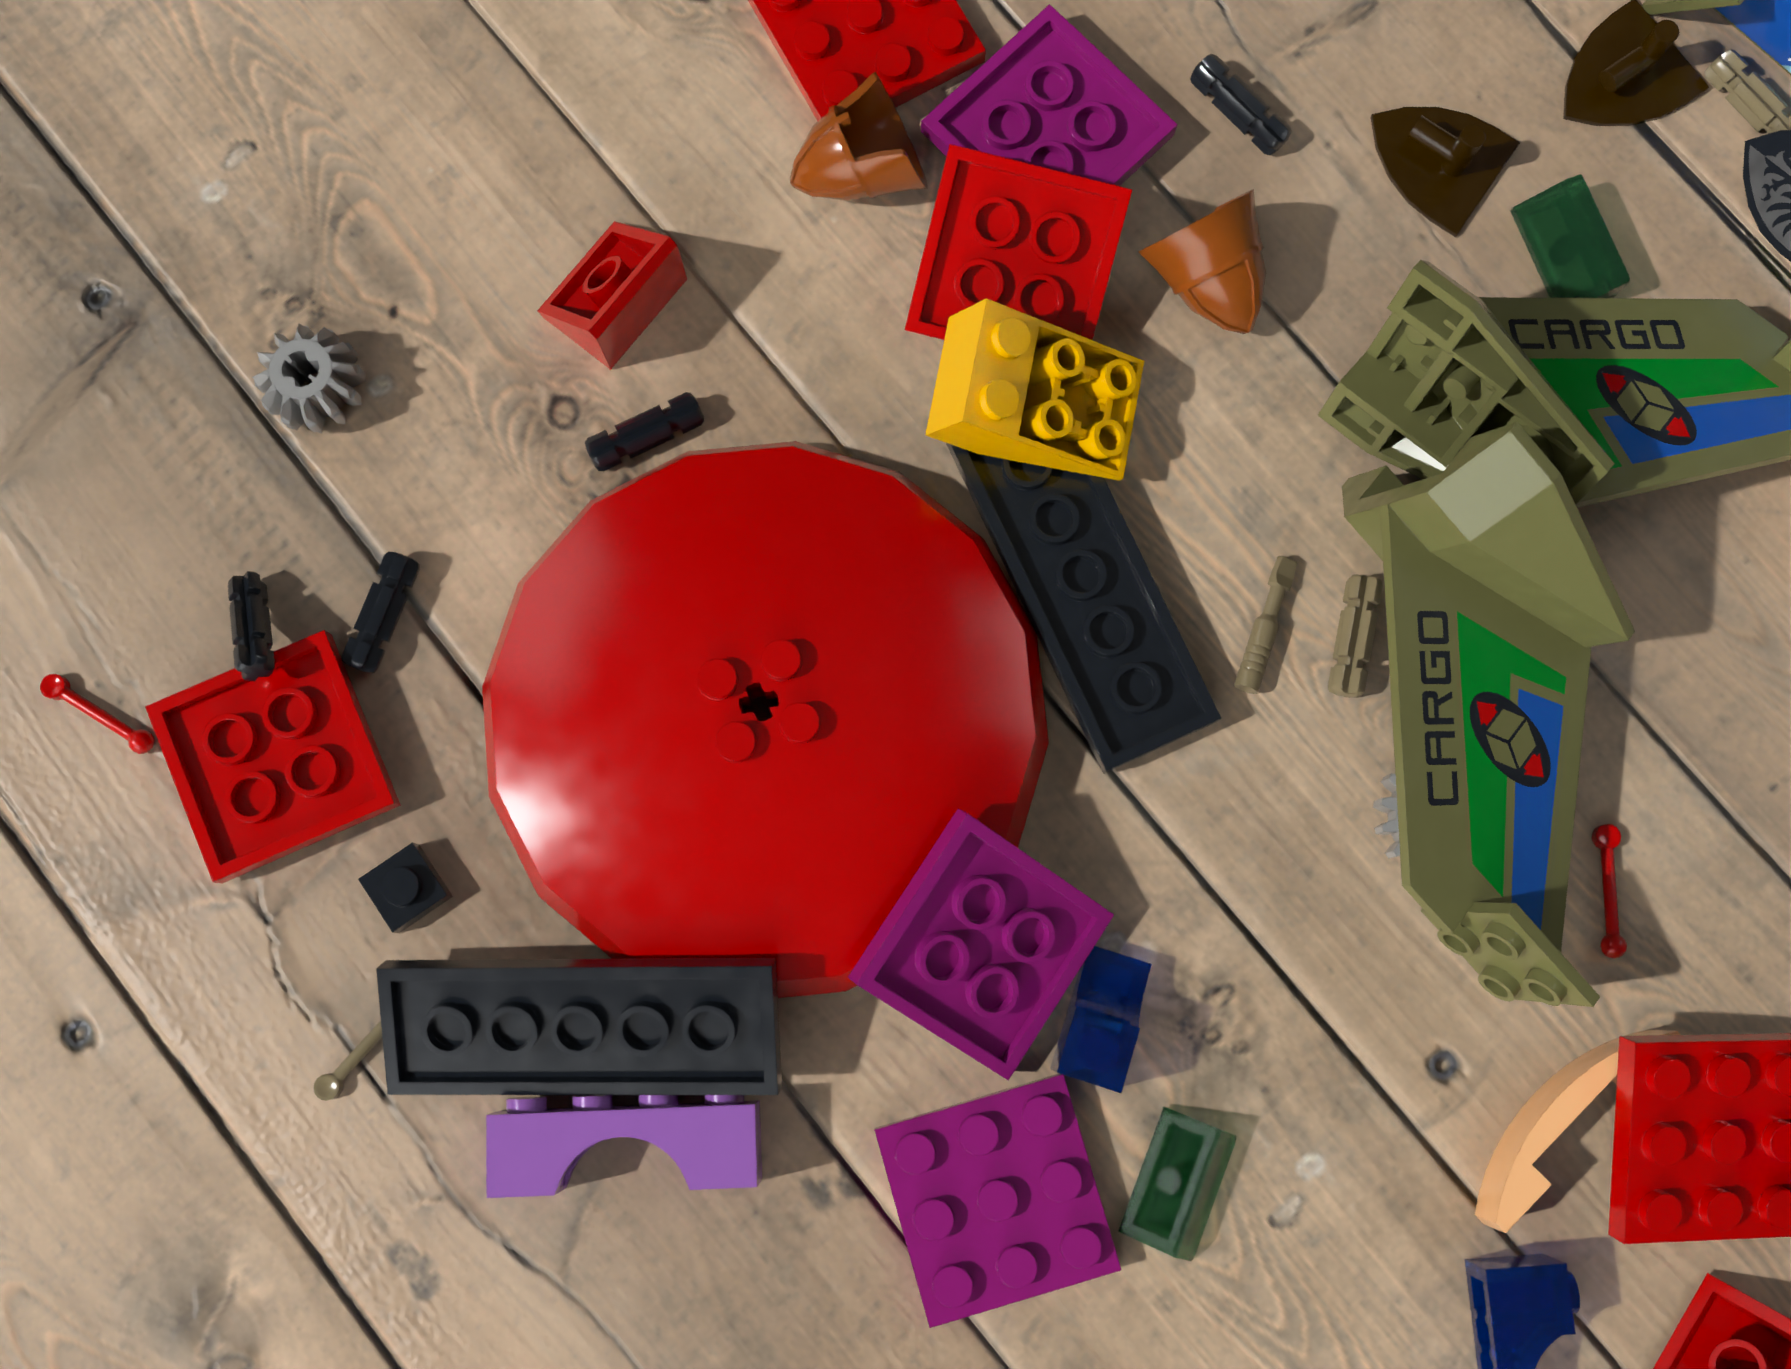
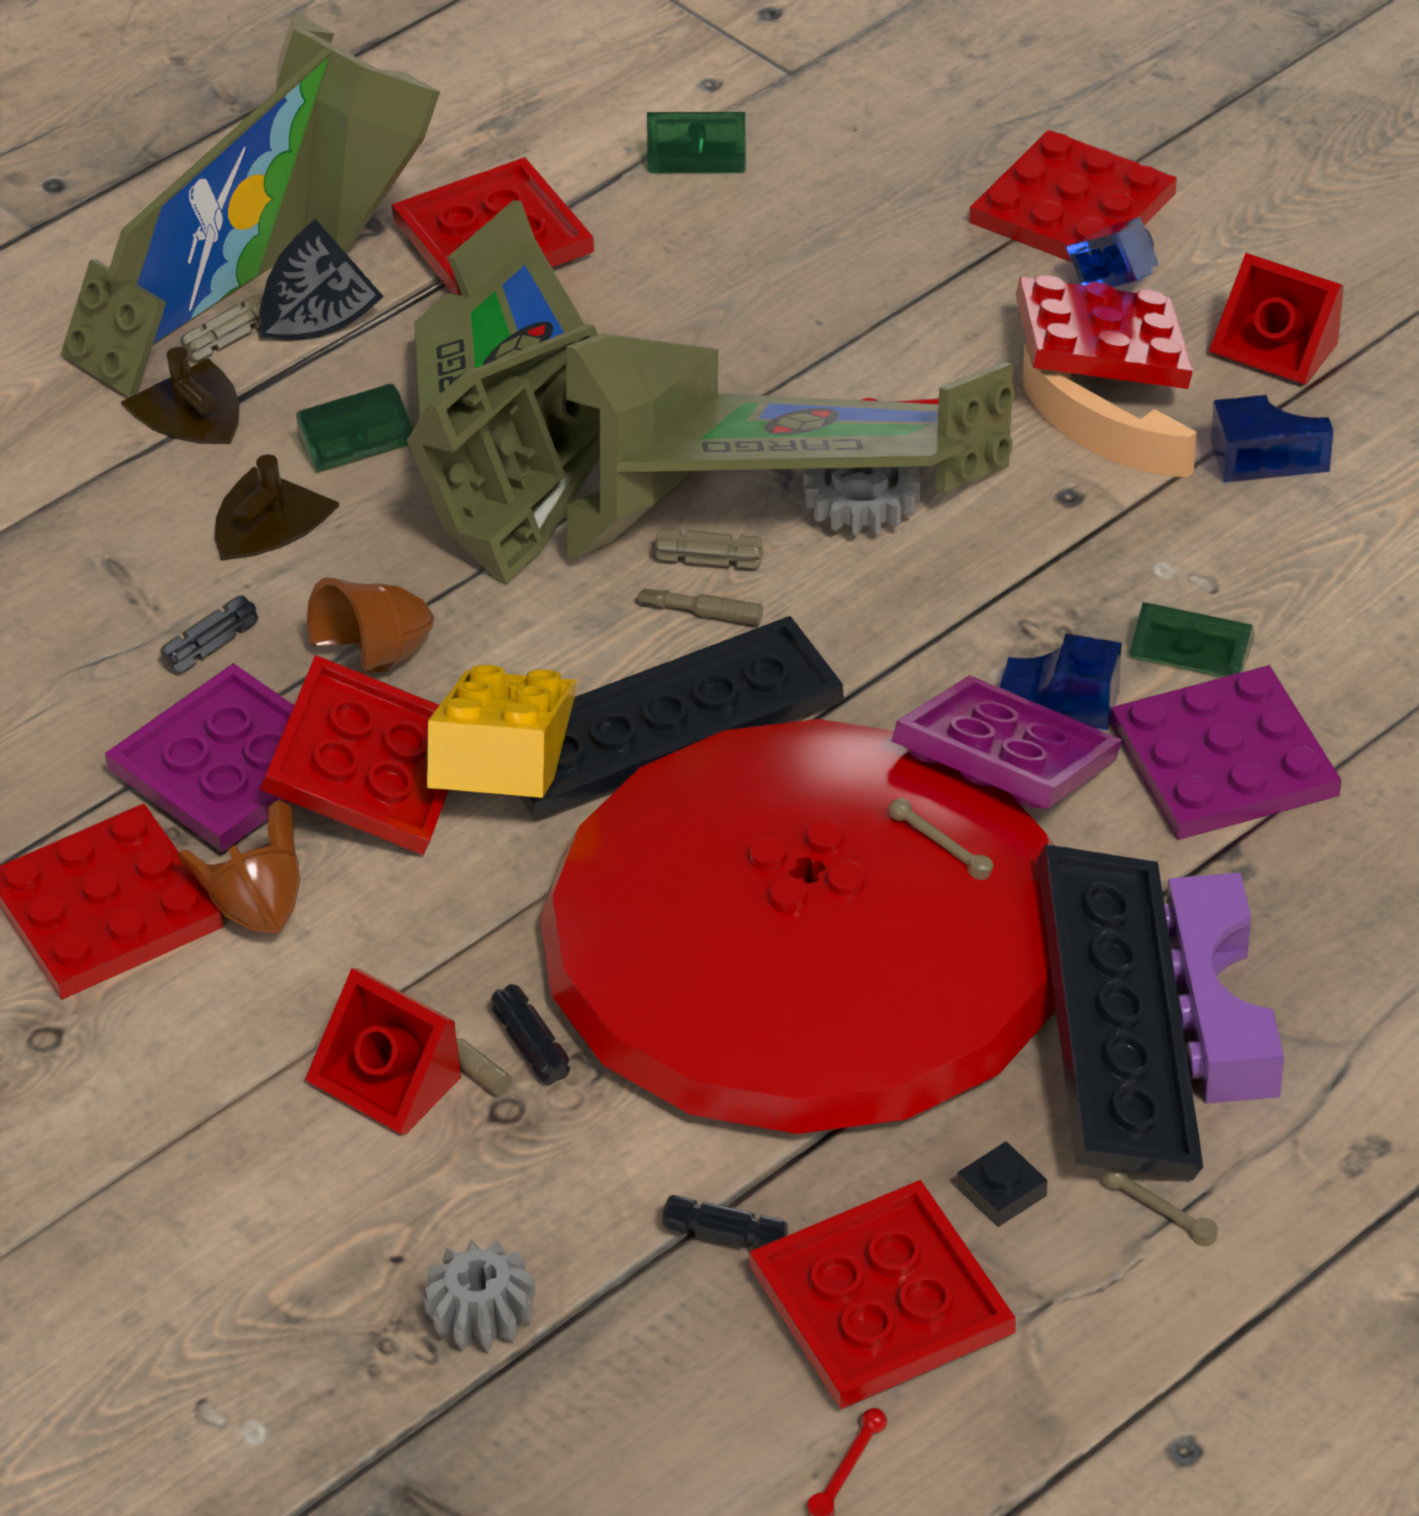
camera: 90 degrees left, 35 degrees down
(250, 626) = (748, 1310): black axle -> none
(631, 367) = (482, 1068): none -> dark tan piece
(764, 890) = (977, 865): none -> dark tan hinge

